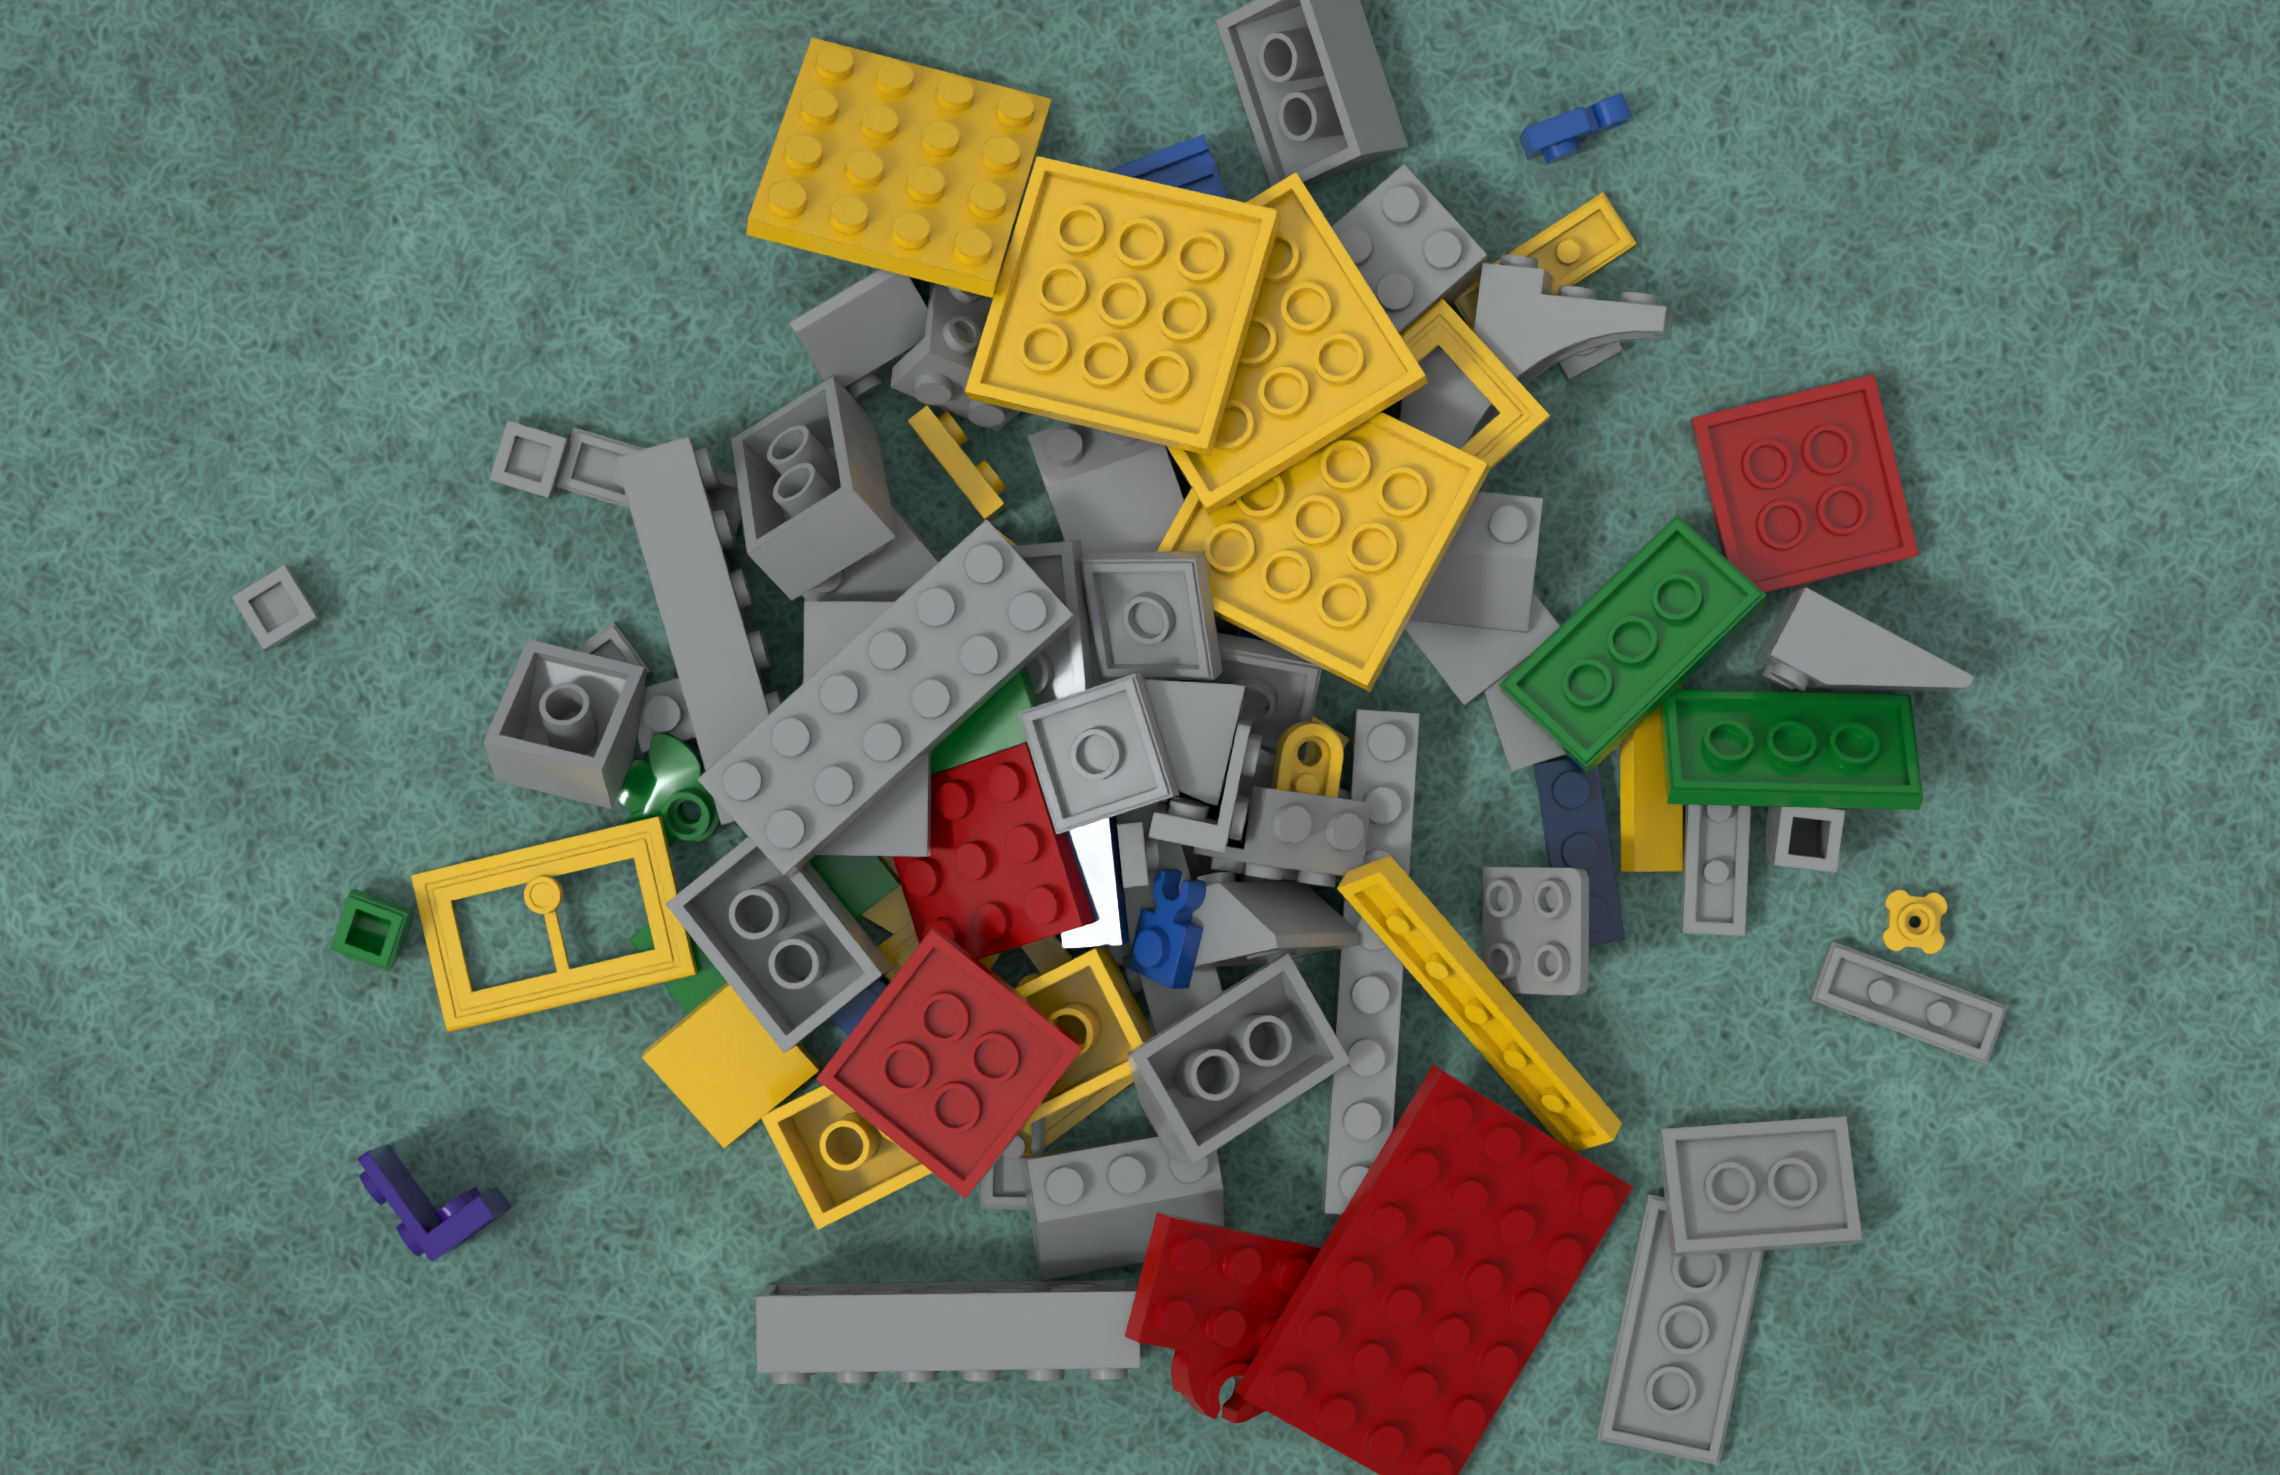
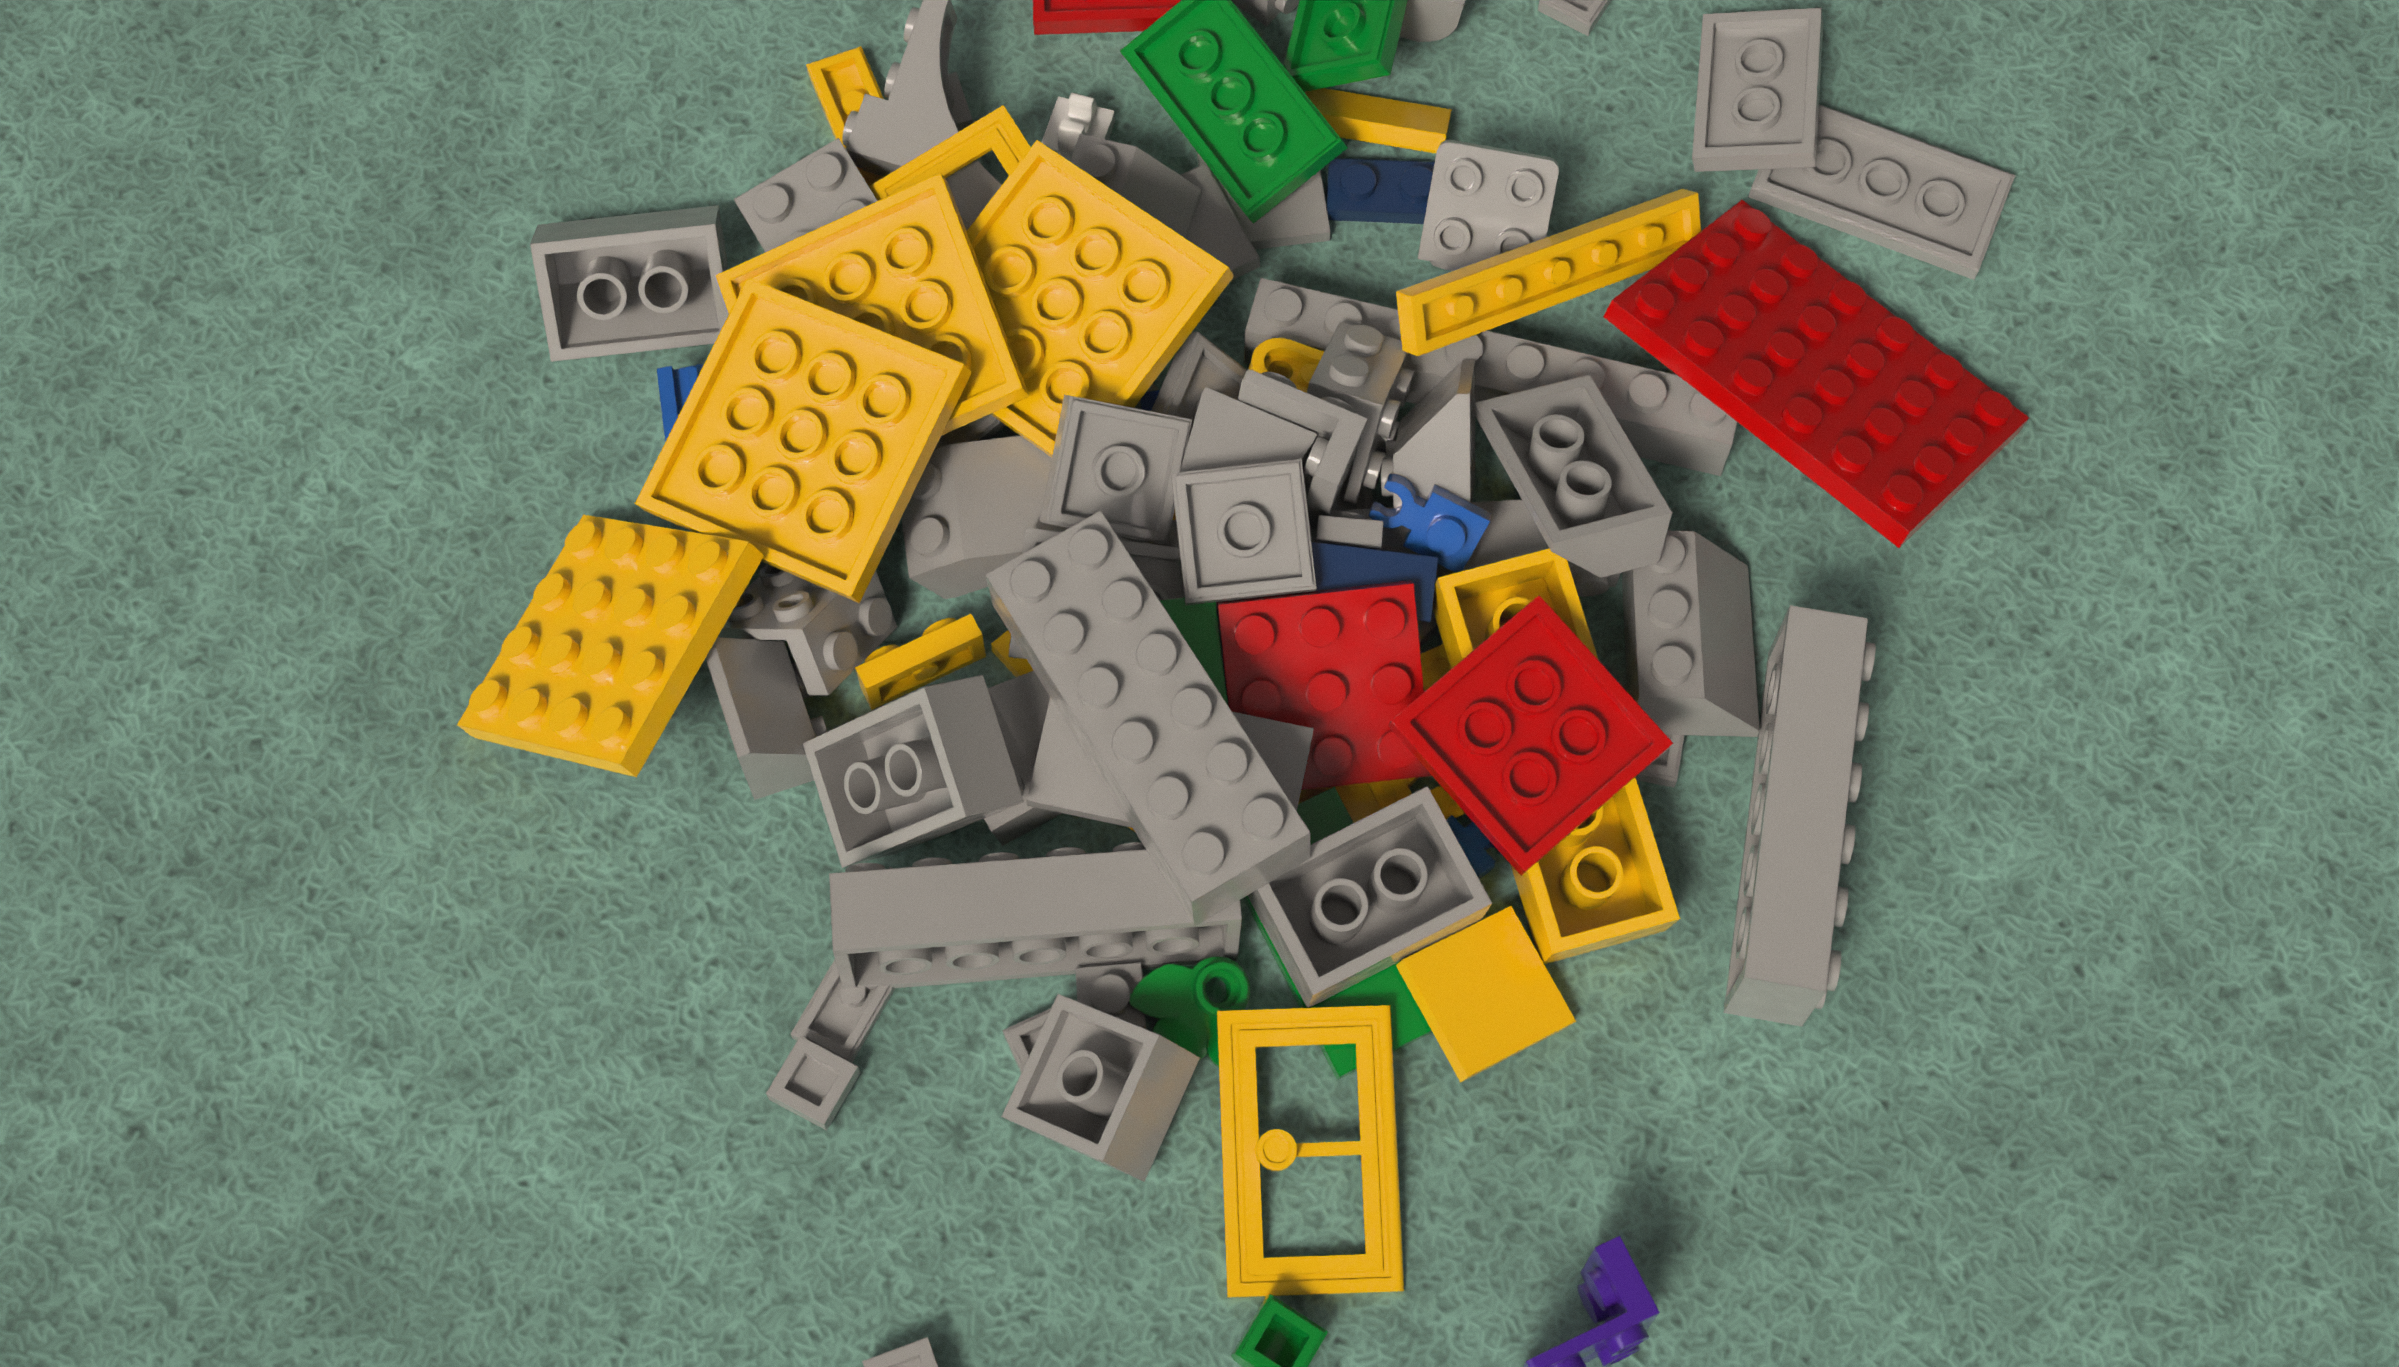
camera: 75 degrees left, 20 degrees down
(1214, 1302) = (1814, 549): red plate -> none
(1559, 136) = (744, 85): blue plate -> none
(1579, 490) = (1076, 117): none -> white tile
(1715, 870) = (1447, 79): light grey plate -> none

